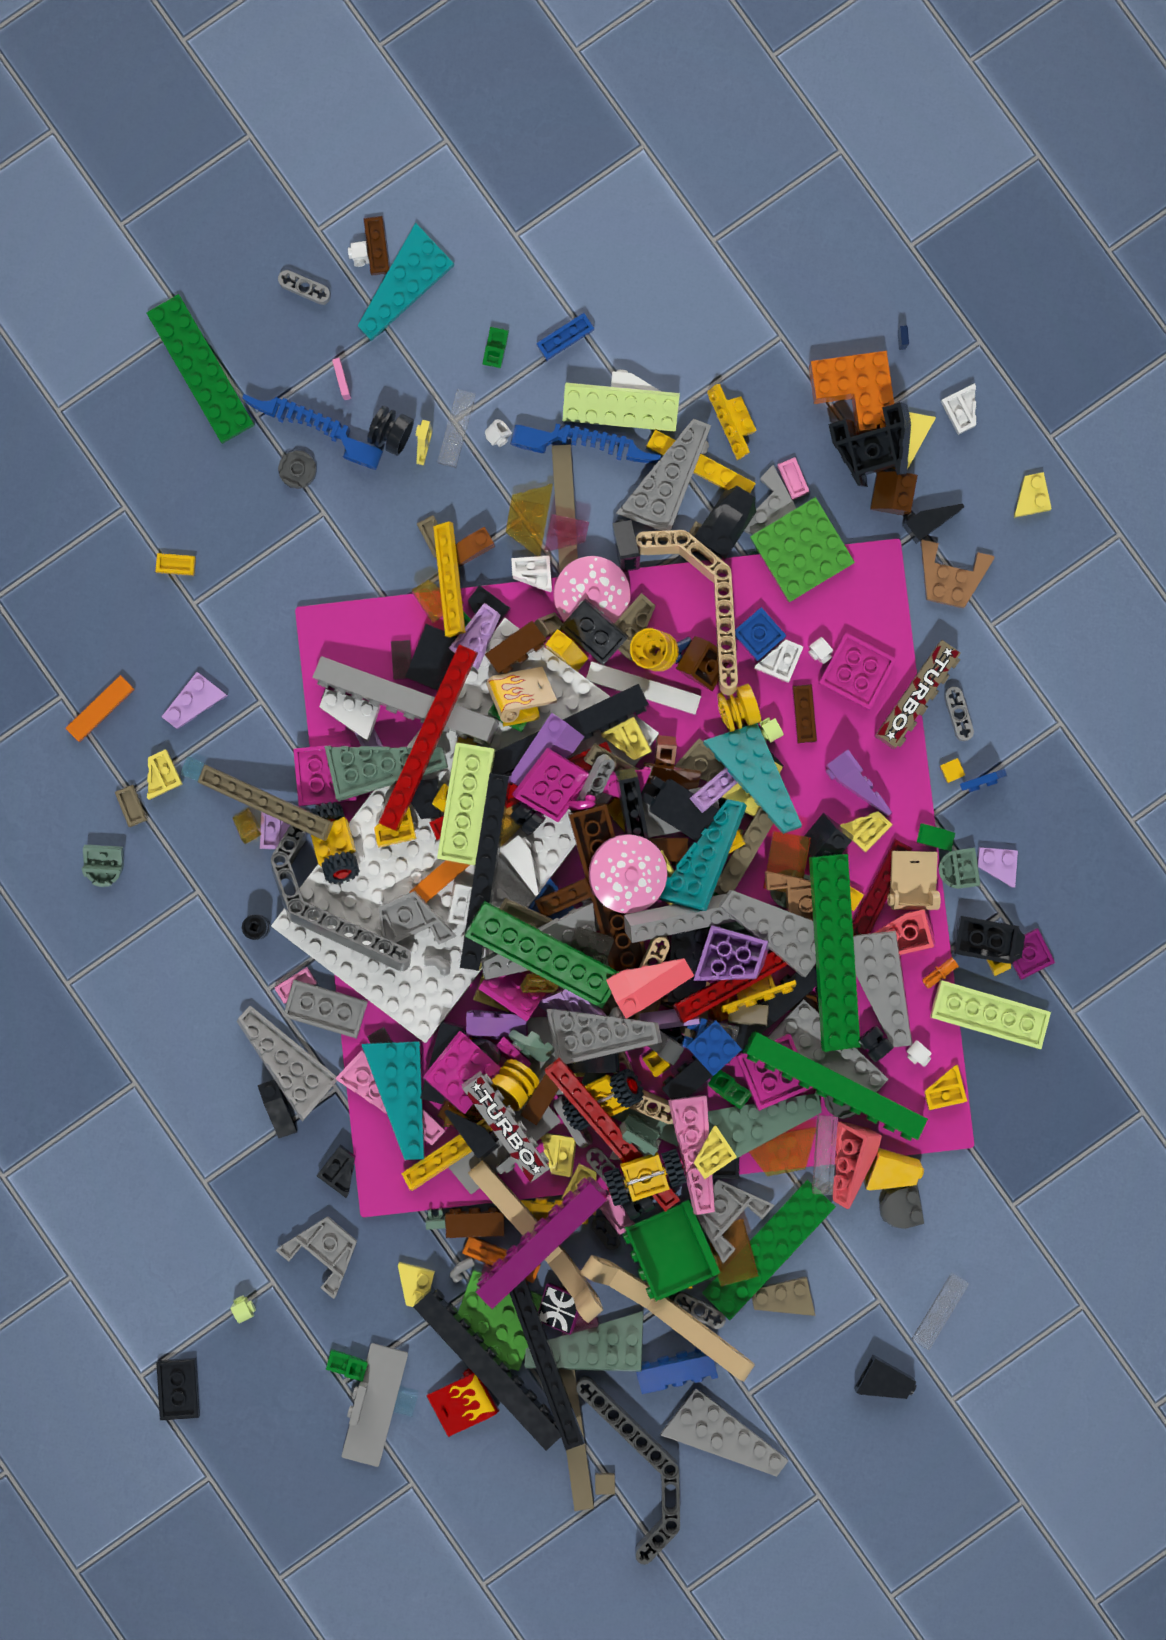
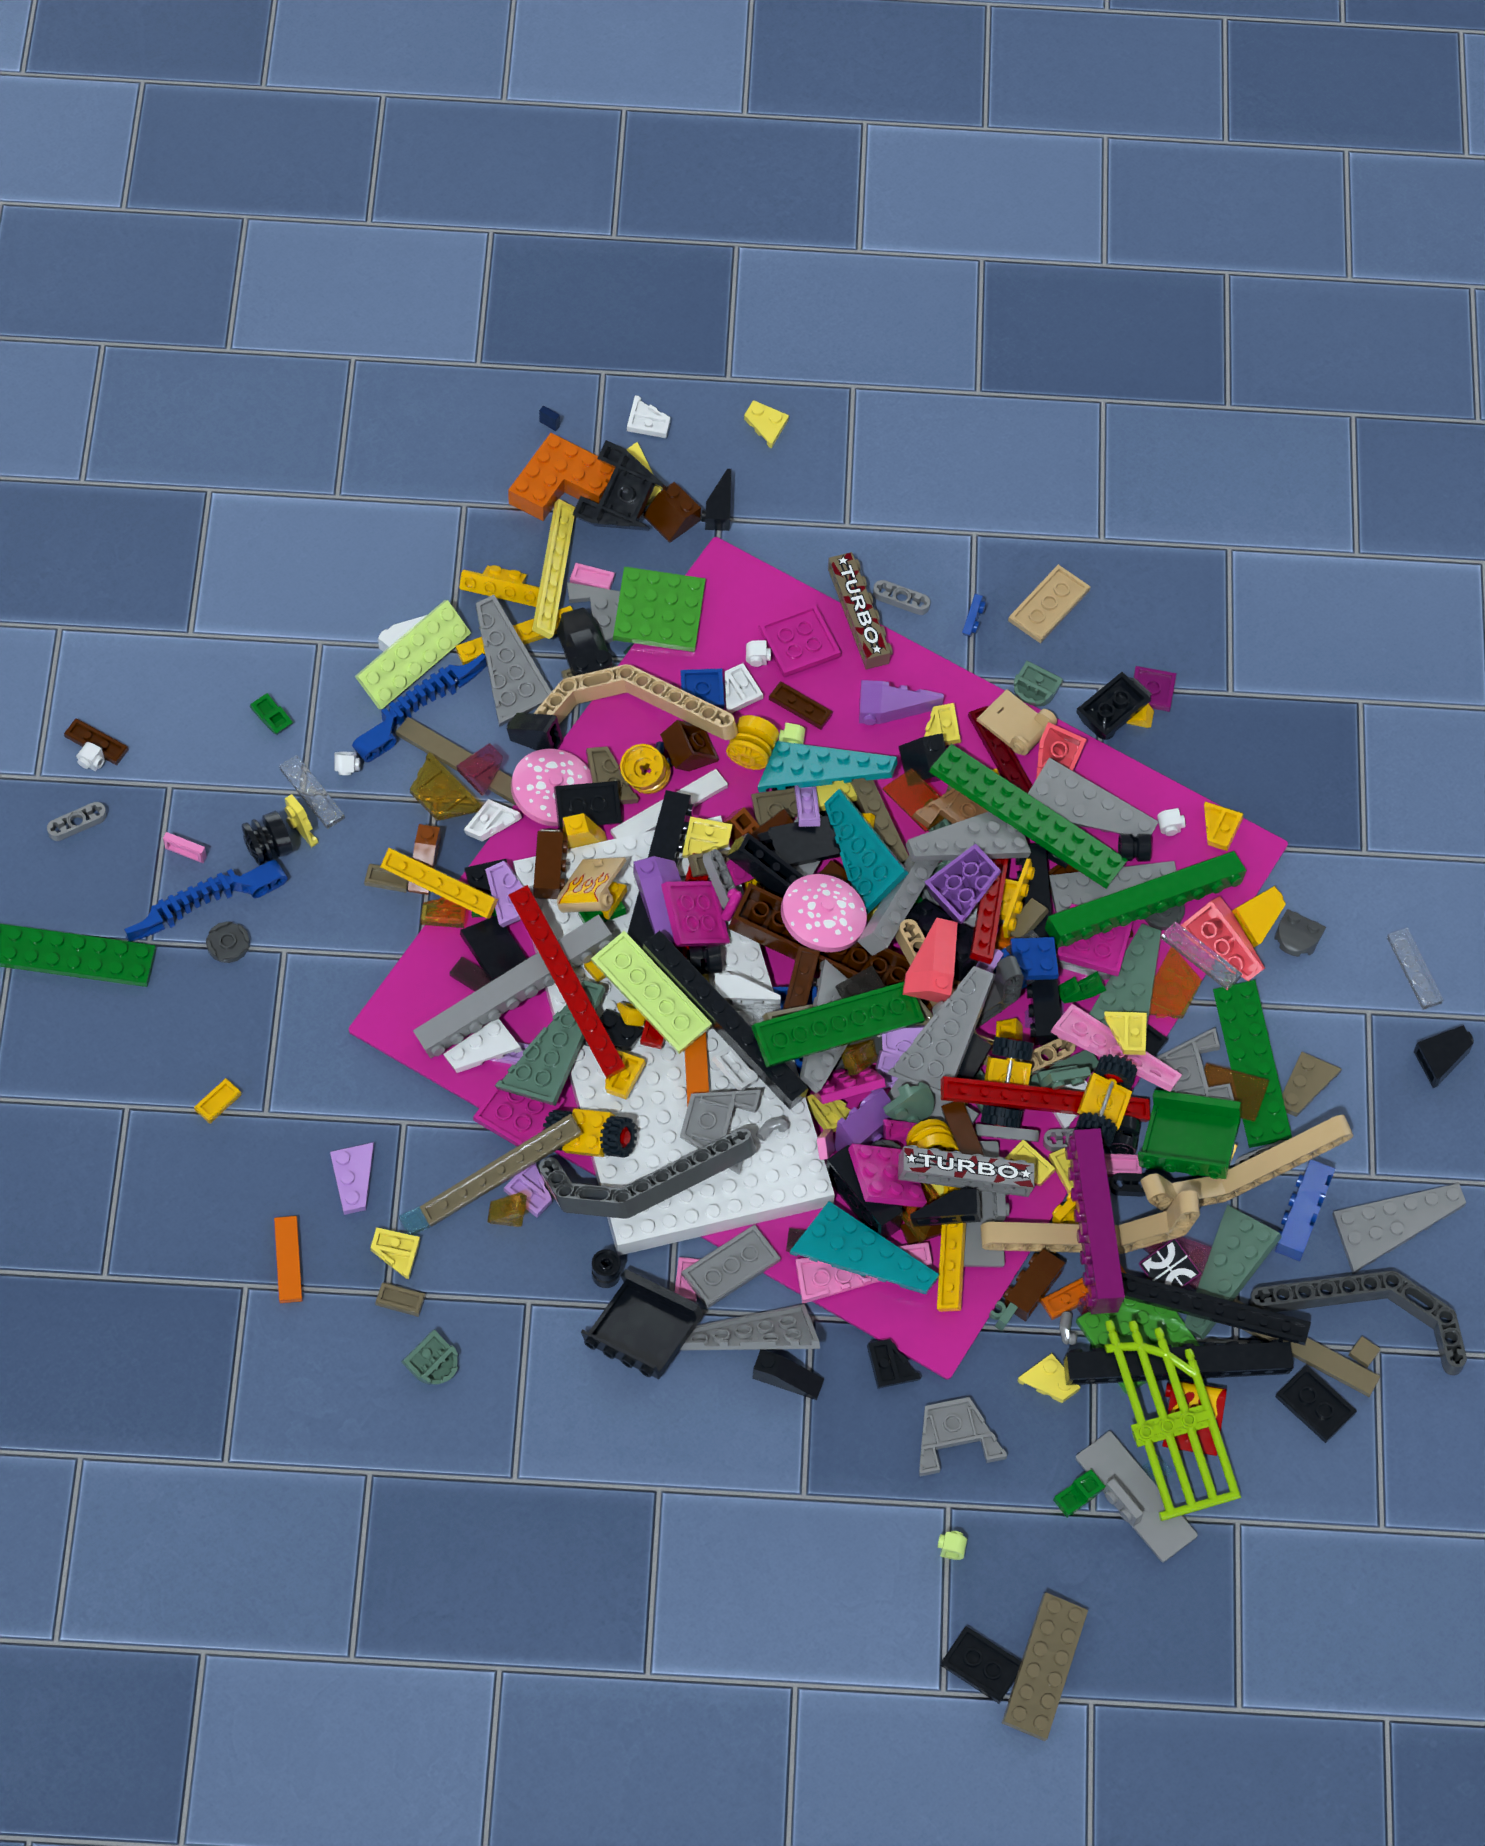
camera: 60 degrees left, 25 degrees down
(206, 1432) = (1044, 1666): none -> dark tan plate
(232, 986) = (643, 1325): none -> black panel
(409, 277) = (147, 734): teal wing -> none
(438, 1399) = (1174, 1424): none -> lime piece
(457, 1008) = (825, 1144): none -> bright pink tile
(539, 1477) = (1316, 1404): none -> black tile
(565, 336) = (313, 655): blue plate -> none
(773, 447) = (553, 569): none -> light yellow plate
(935, 837) = (992, 682): green slope -> none
(940, 972) = (1113, 759): orange axle -> none
(951, 584) = (783, 530): medium nougat wing -> none
(952, 770) = (945, 635): yellow tile -> none
(990, 1014) = (1181, 748): yellowish green plate -> none
(999, 863) = (1057, 656): lavender wing -> none
(1042, 824) = (1049, 603): none -> tan tile

